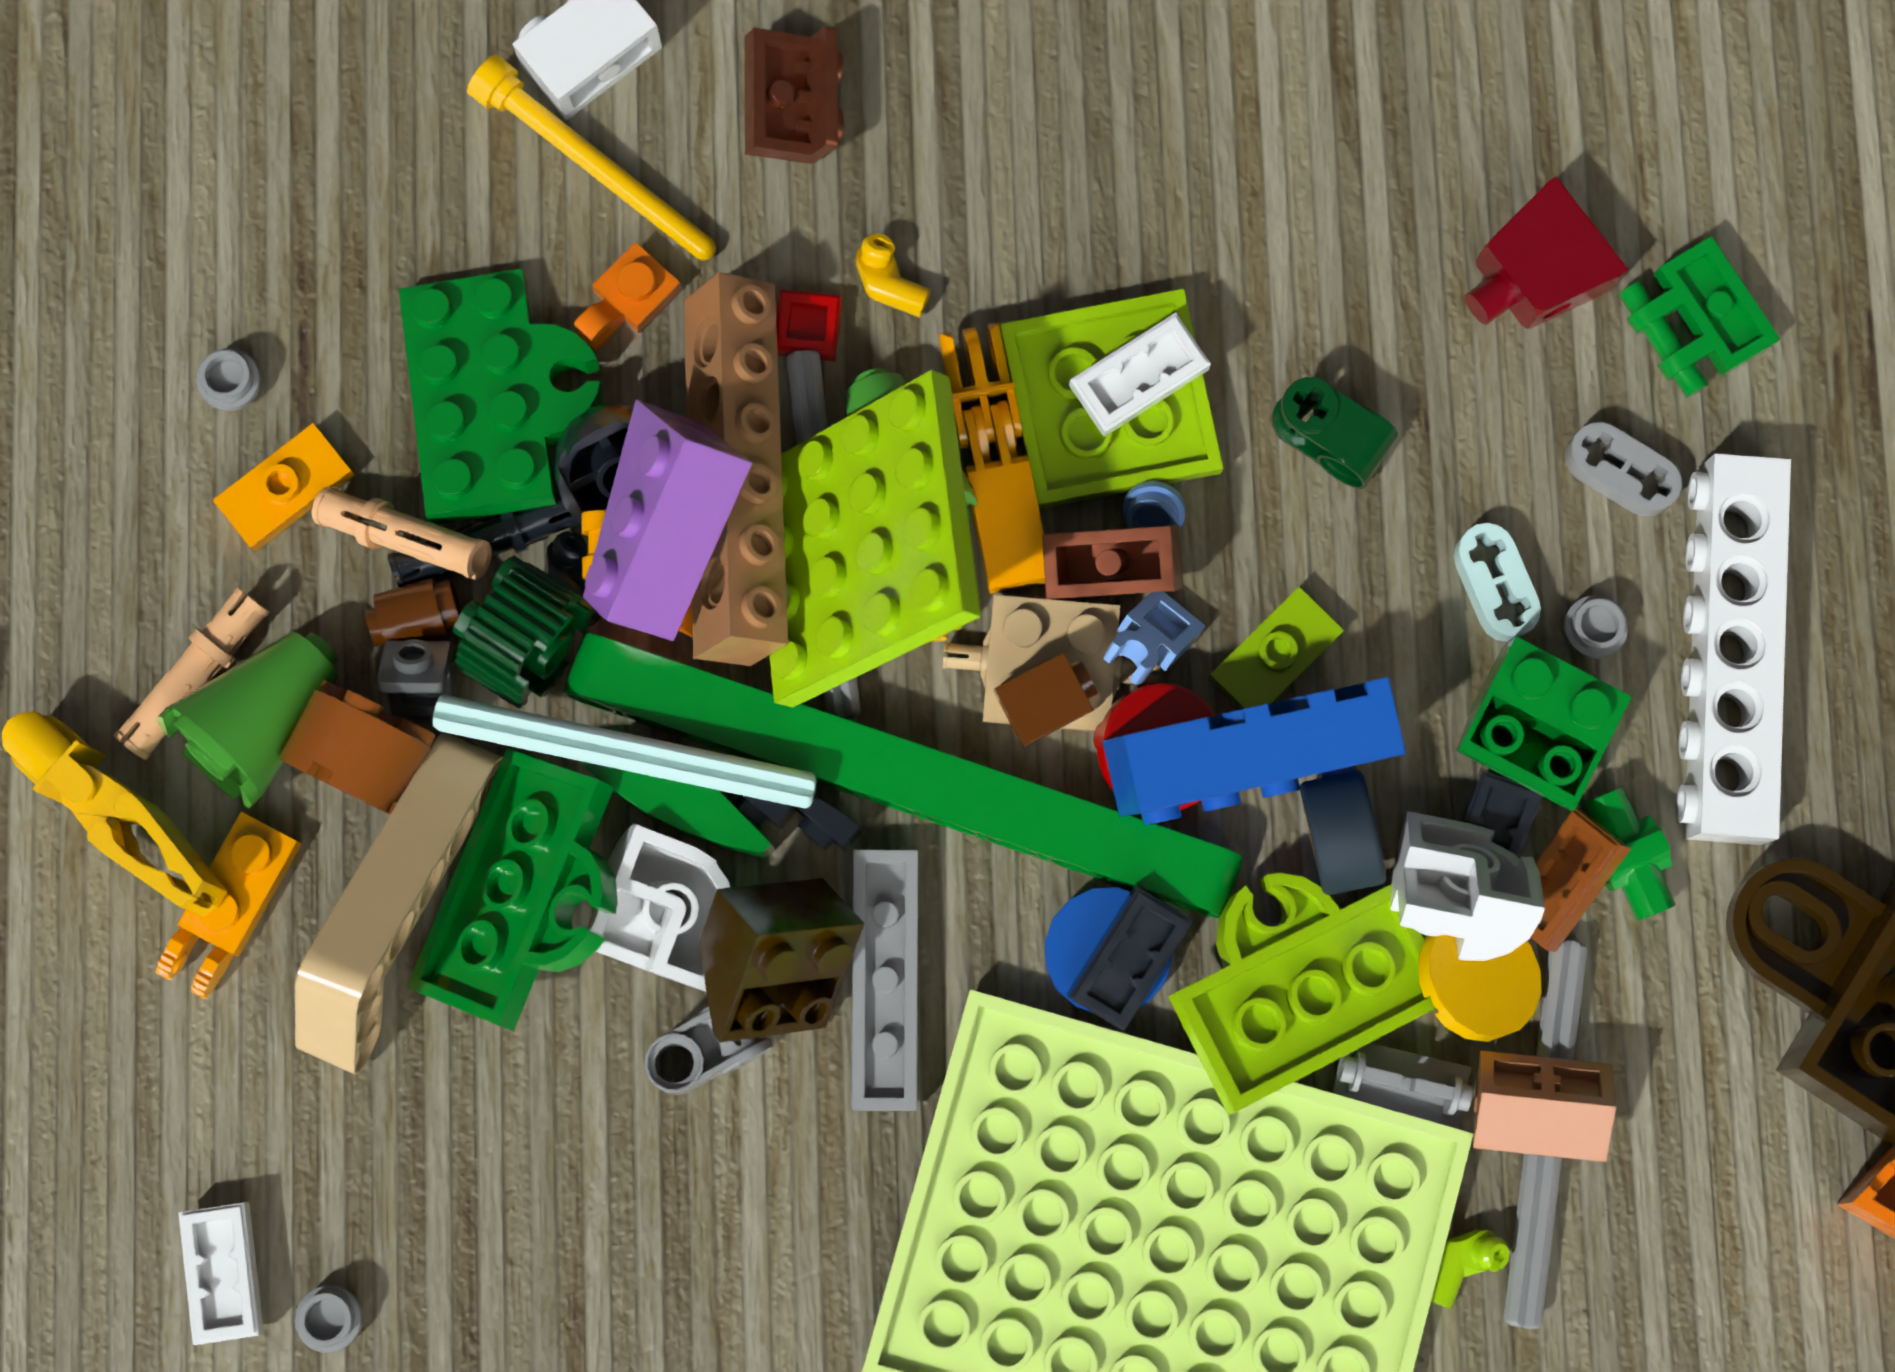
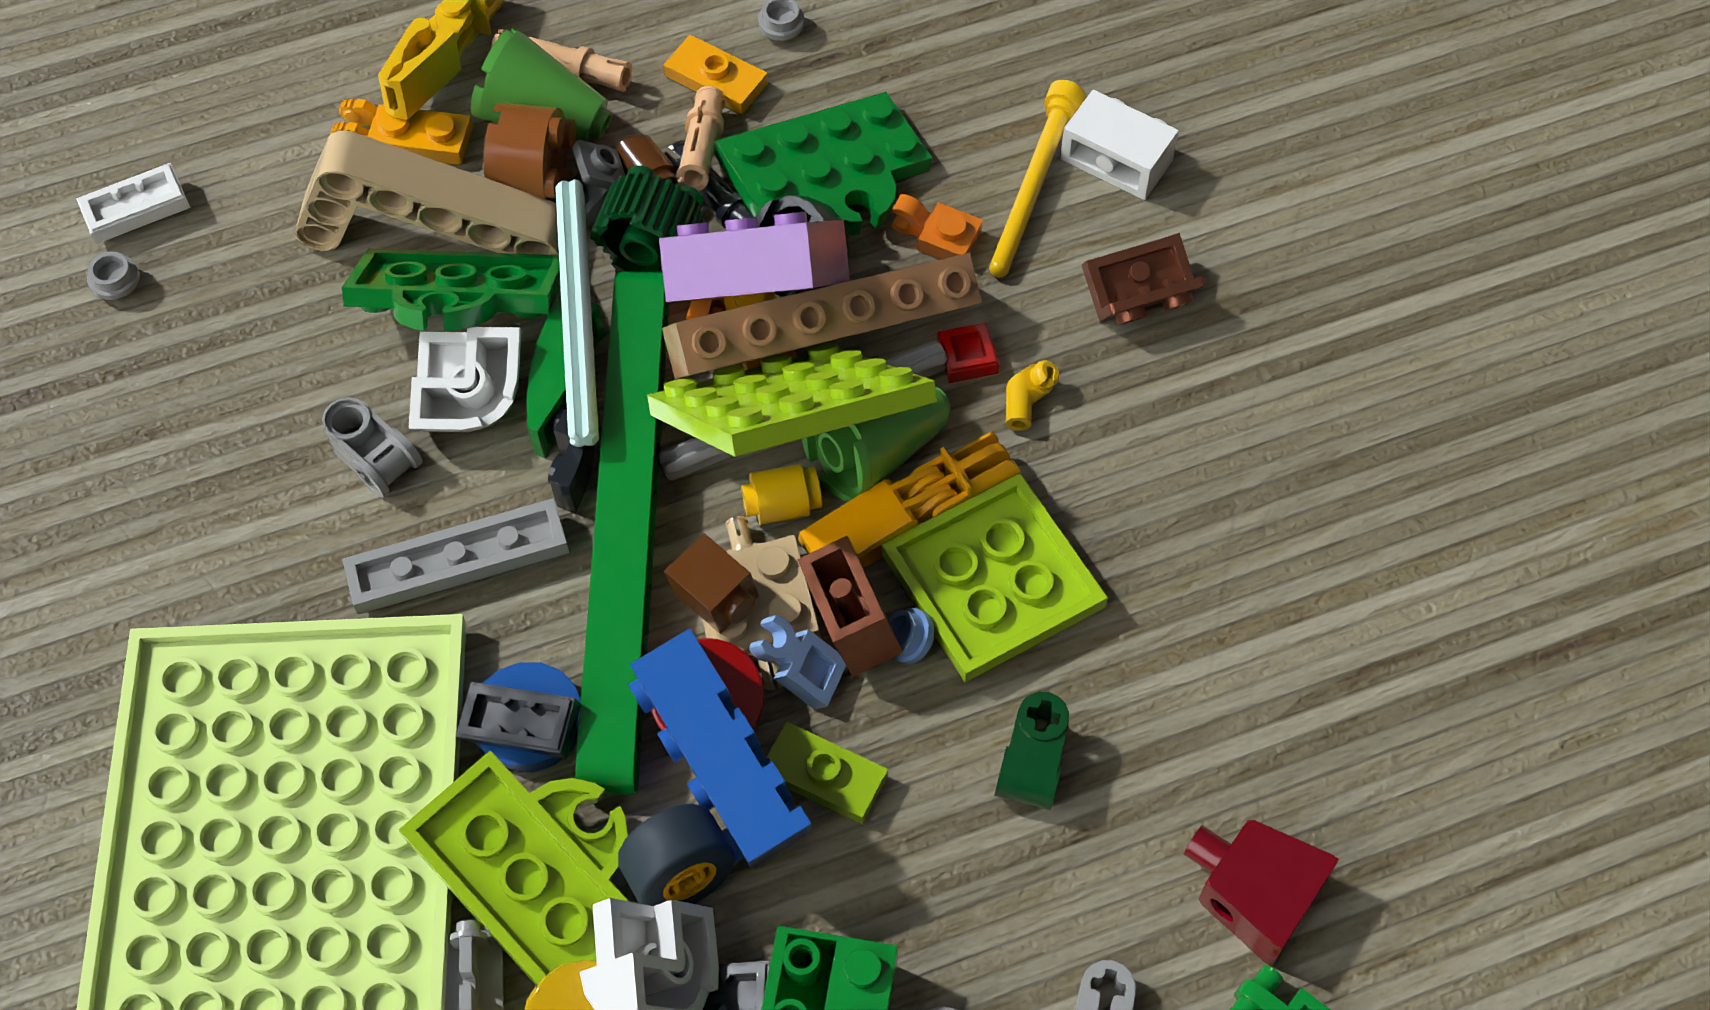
camera: 75 degrees right, 20 degrees down
(775, 957) = (446, 460): dark brown slope -> none
(1139, 374) = (1015, 577): white plate -> none
(1510, 576) = (944, 927): light aqua beam -> none

